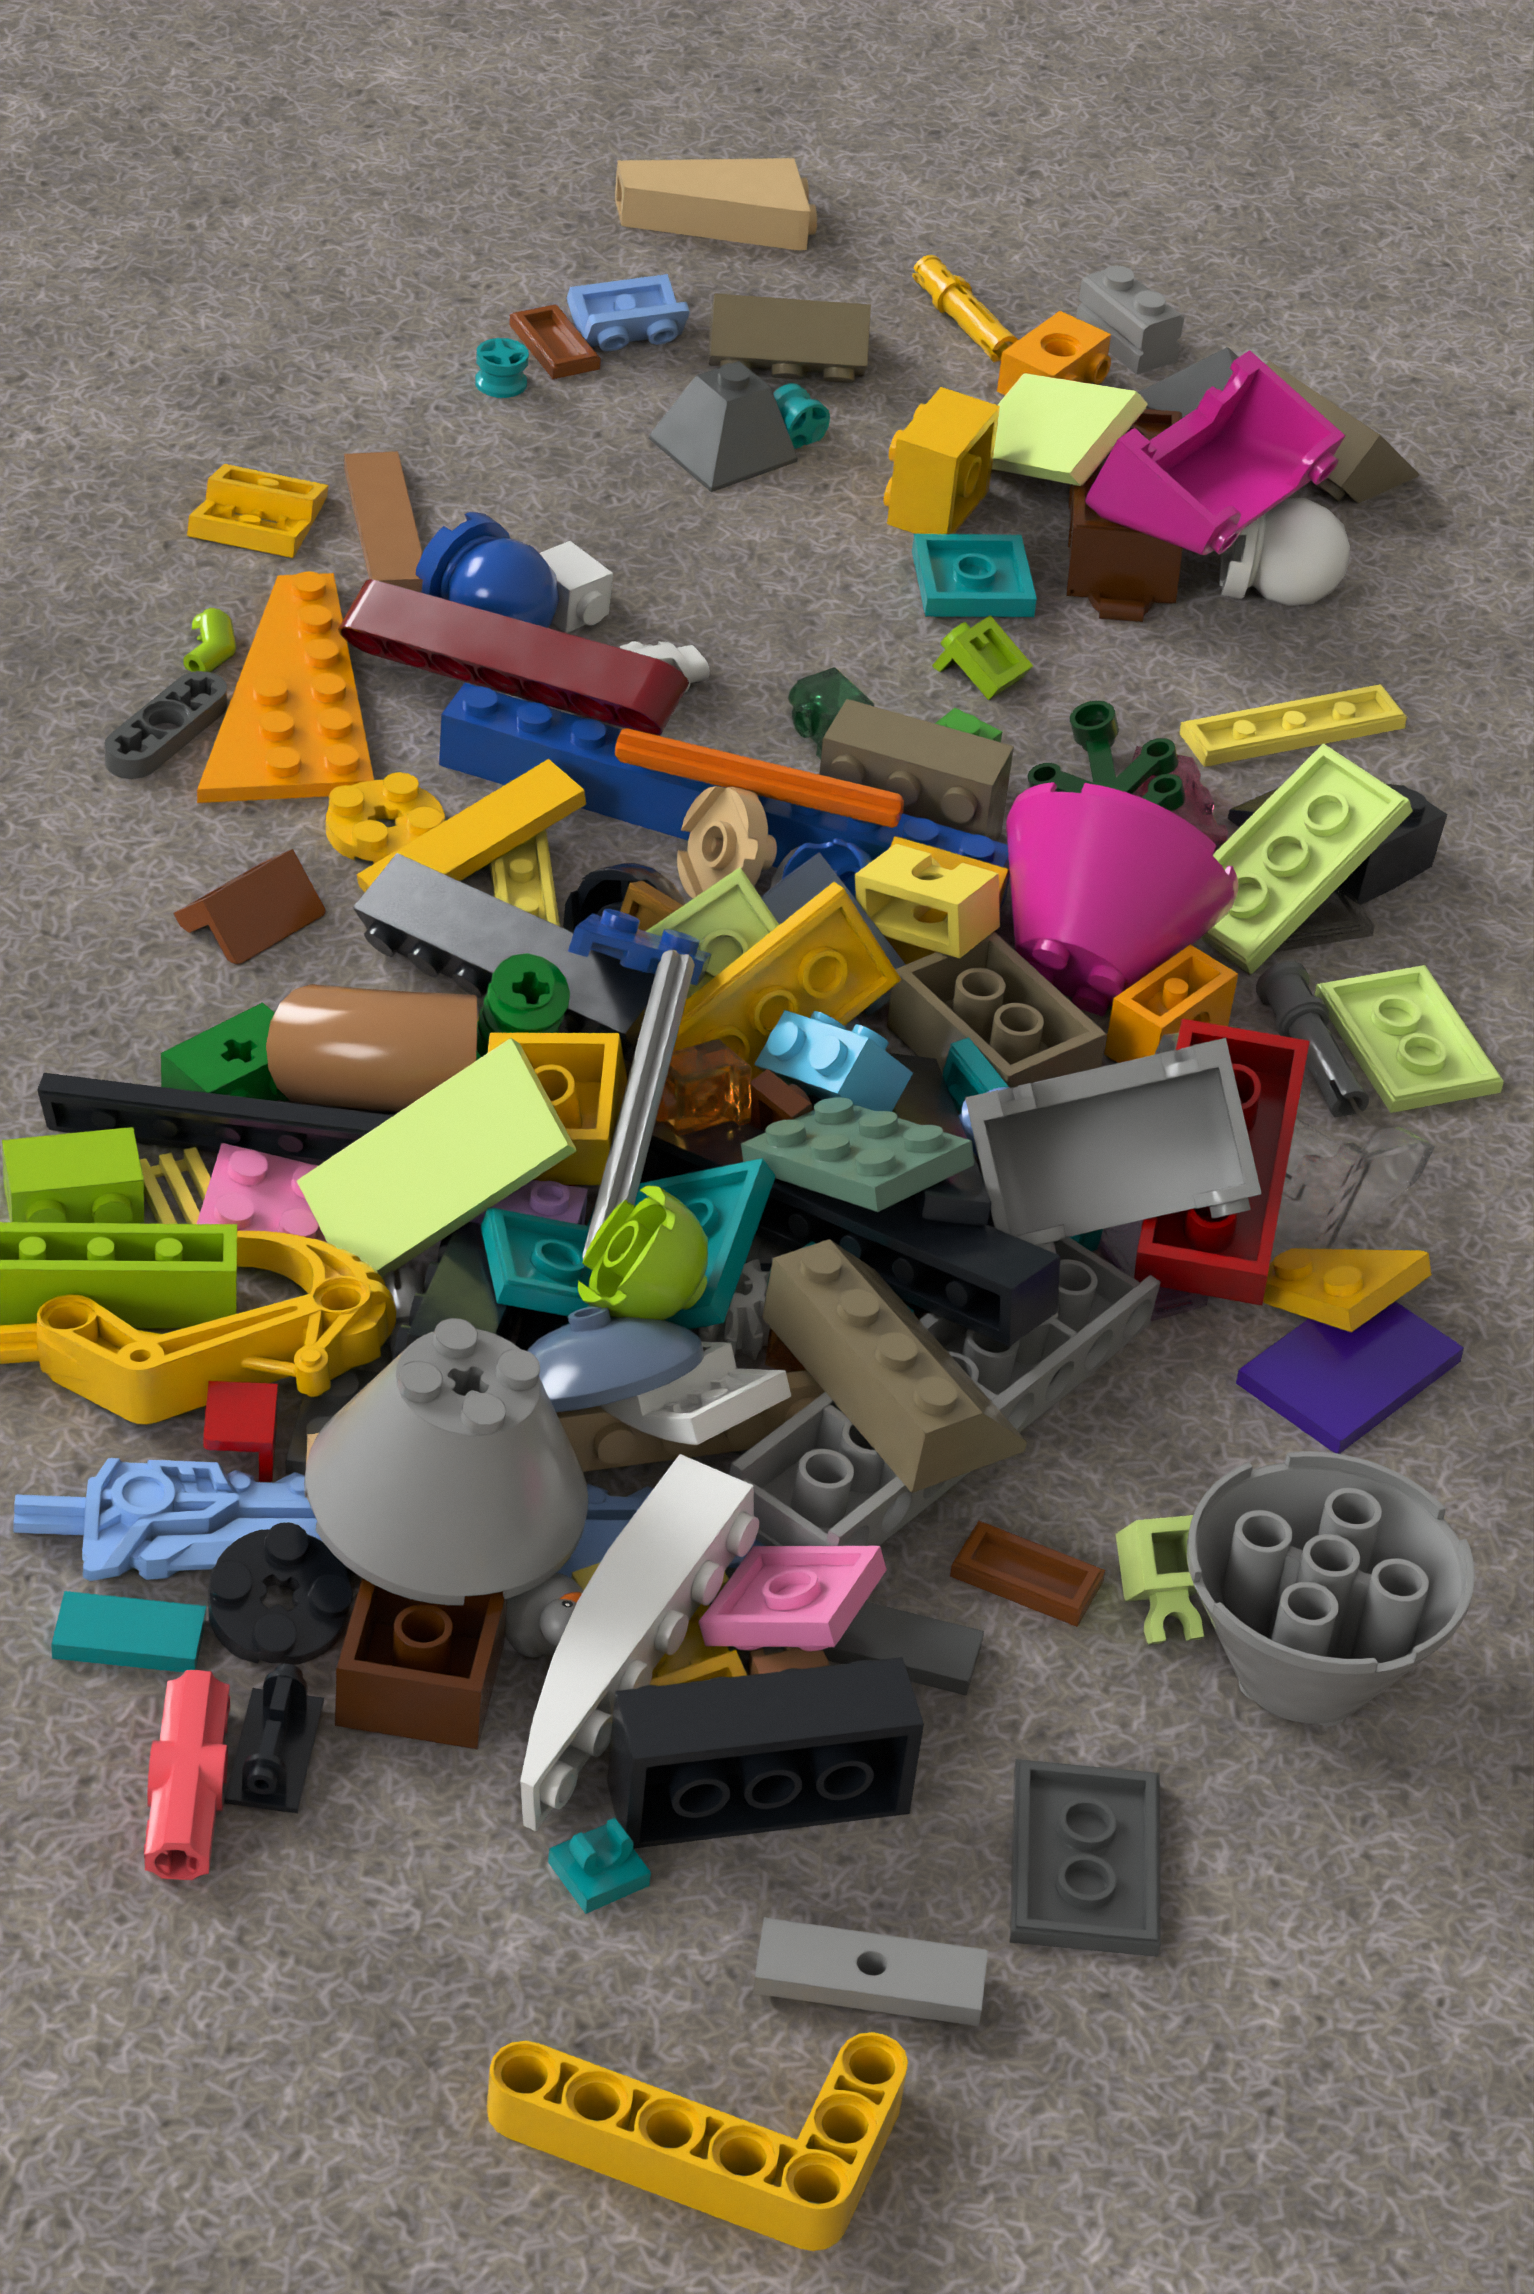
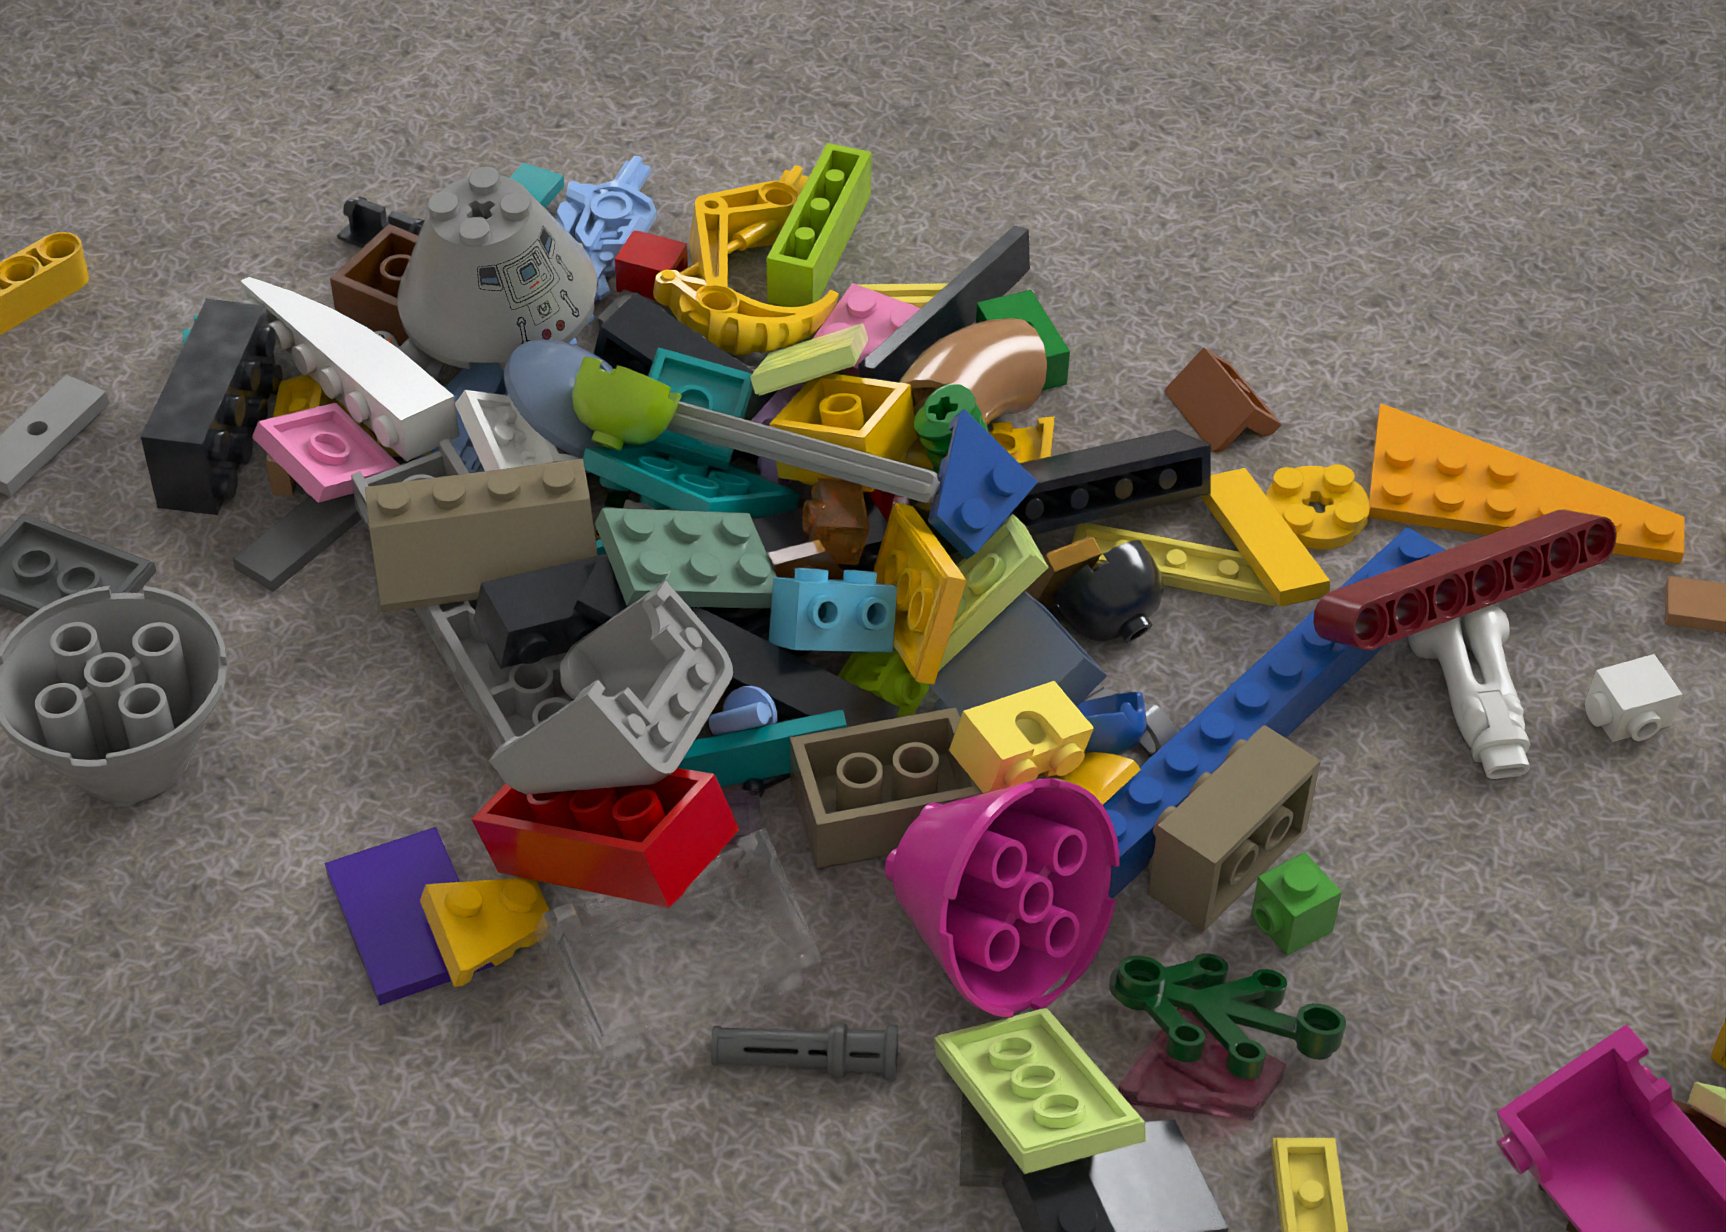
camera: 115 degrees right, 5 degrees up
(74, 1178) = (929, 240): lime brick -> none
(168, 707) = (1475, 393): dark grey beam -> none
(187, 1776) = (386, 185): coral piece -> none
(217, 641) = (1592, 463): lime arm -> none
(489, 571) = (1617, 618): blue tile -> none
(725, 834) = (1185, 665): tan plate -> none
(759, 776) = (1230, 683): orange axle -> none
(818, 701) = (1395, 834): clear green brick -> none
(973, 575) = (1658, 1019): teal plate -> none
(984, 655) = (1470, 993): lime bracket -> none
(1027, 1573) = (315, 632): dark orange tile -> none
(1157, 1569) = (258, 681): yellowish green brick -> none
(1181, 988) = (861, 922): light orange brick -> none
(1408, 1039) = (792, 1142): yellowish green tile -> none

